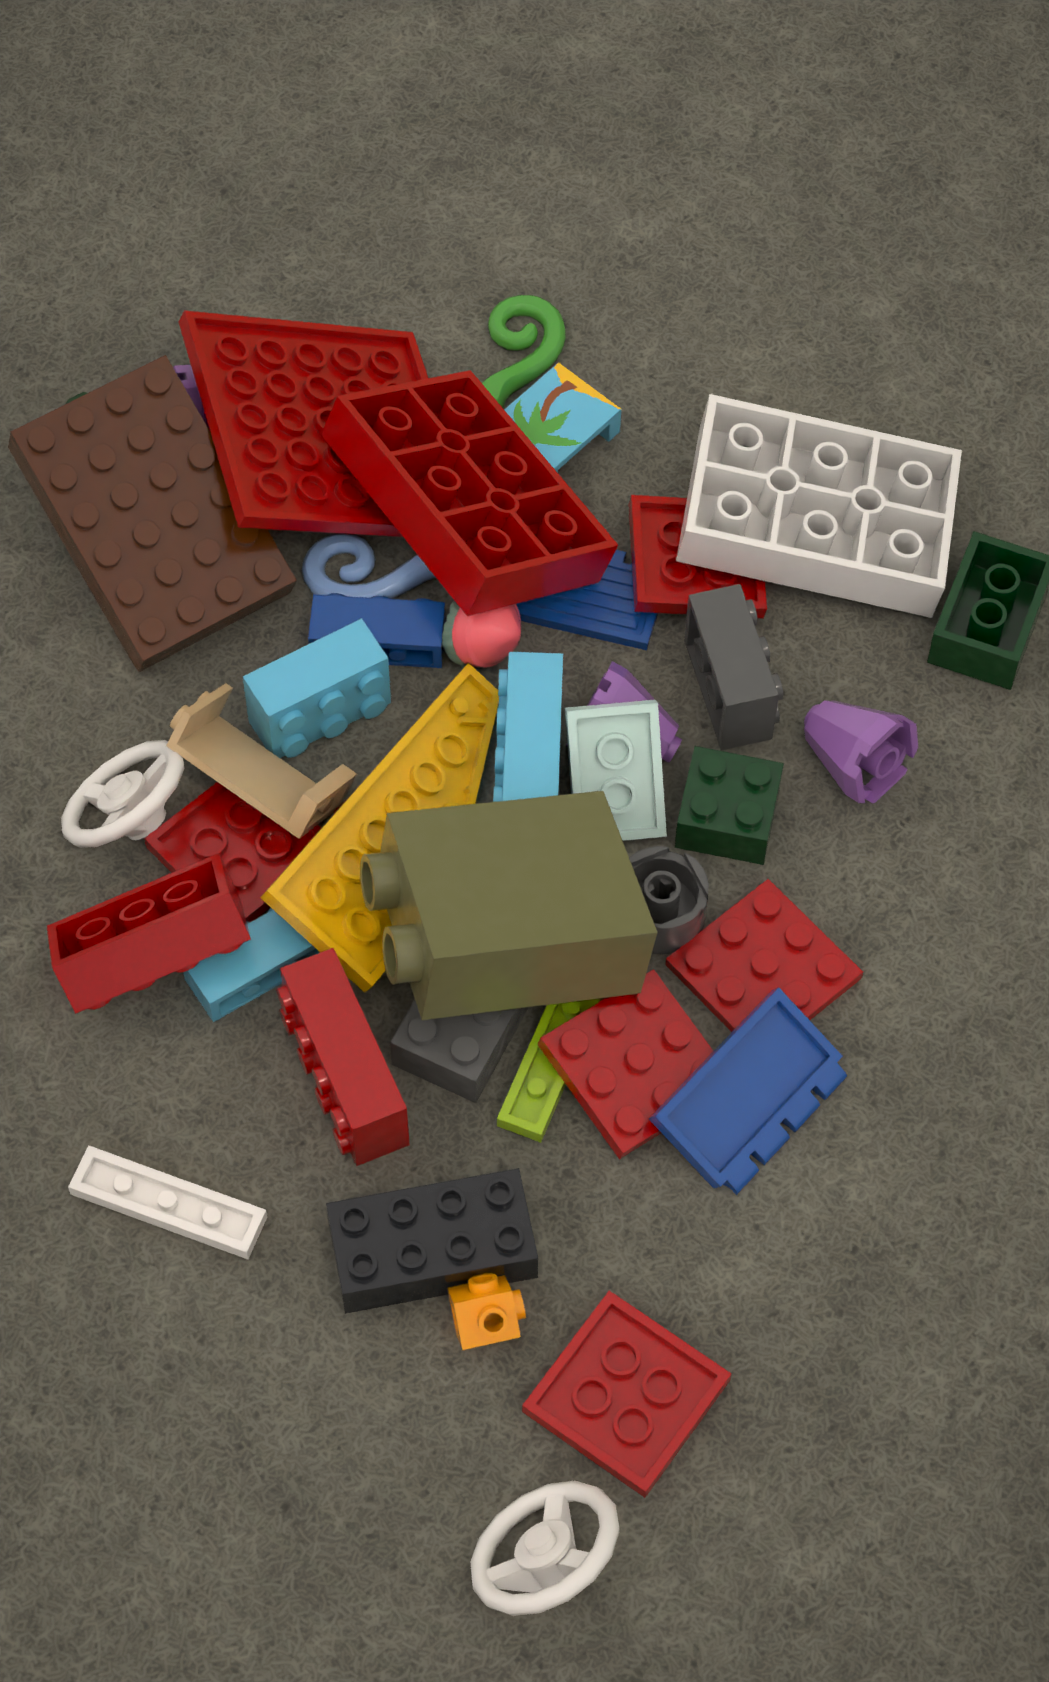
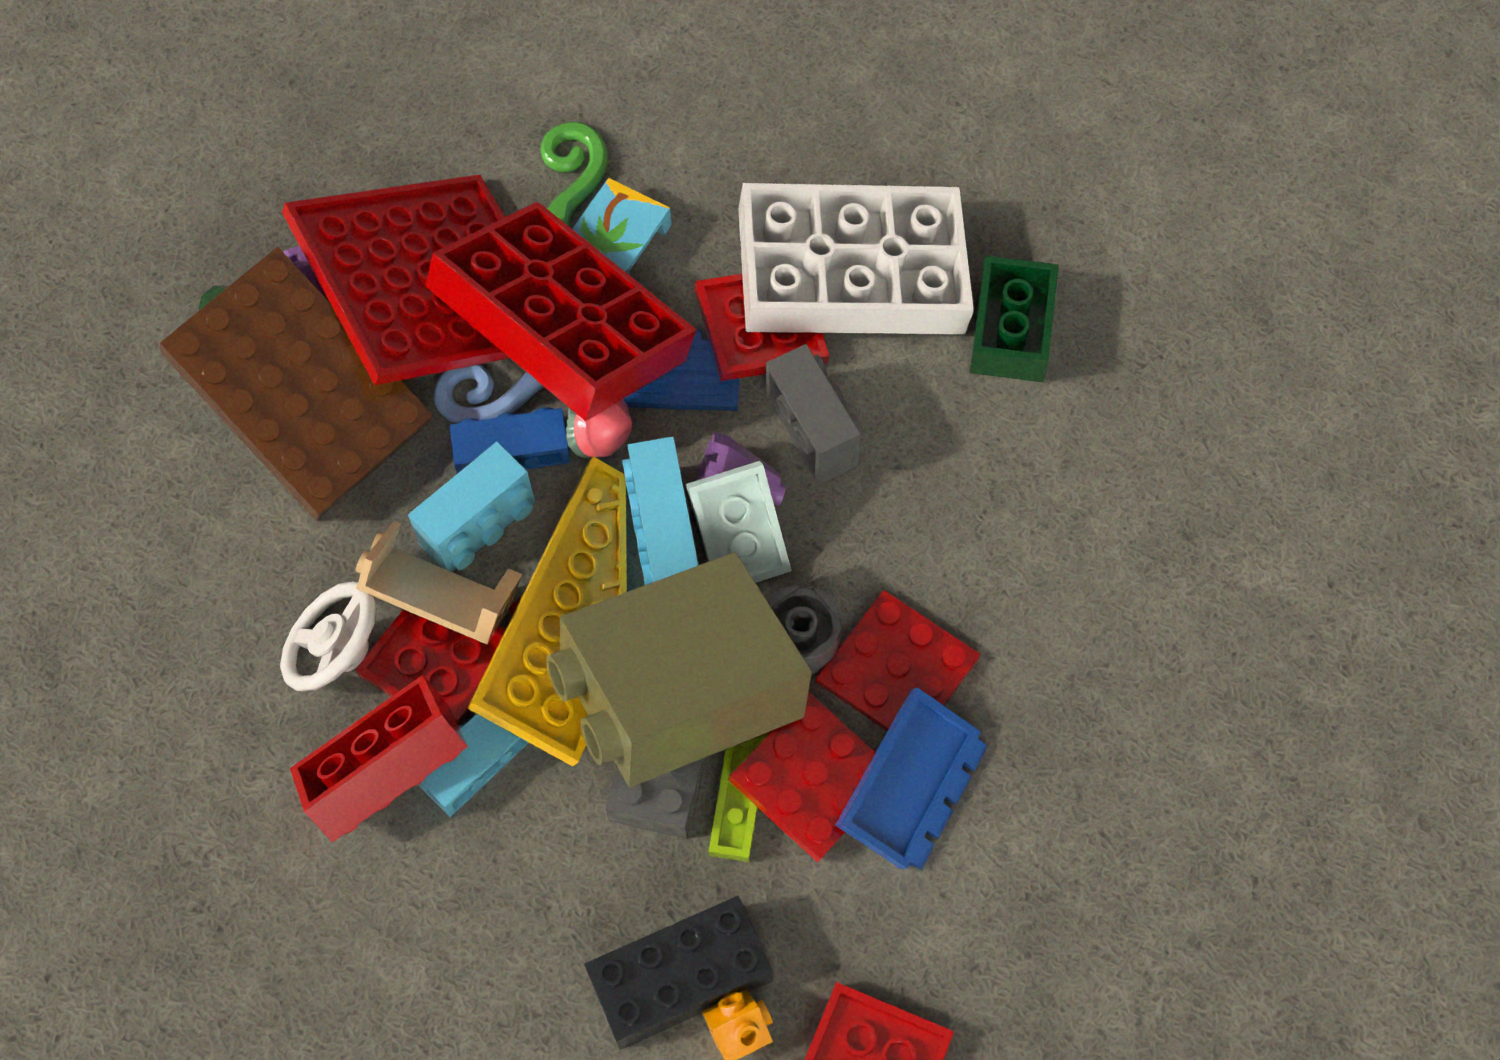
camera: 10 degrees left, 5 degrees up
(168, 1202) = (448, 987): white plate -> none
(343, 1058) = (573, 833): red brick -> none
(728, 805) = (838, 534): dark green brick -> none
(858, 738) = (932, 454): medium lavender cone -> none

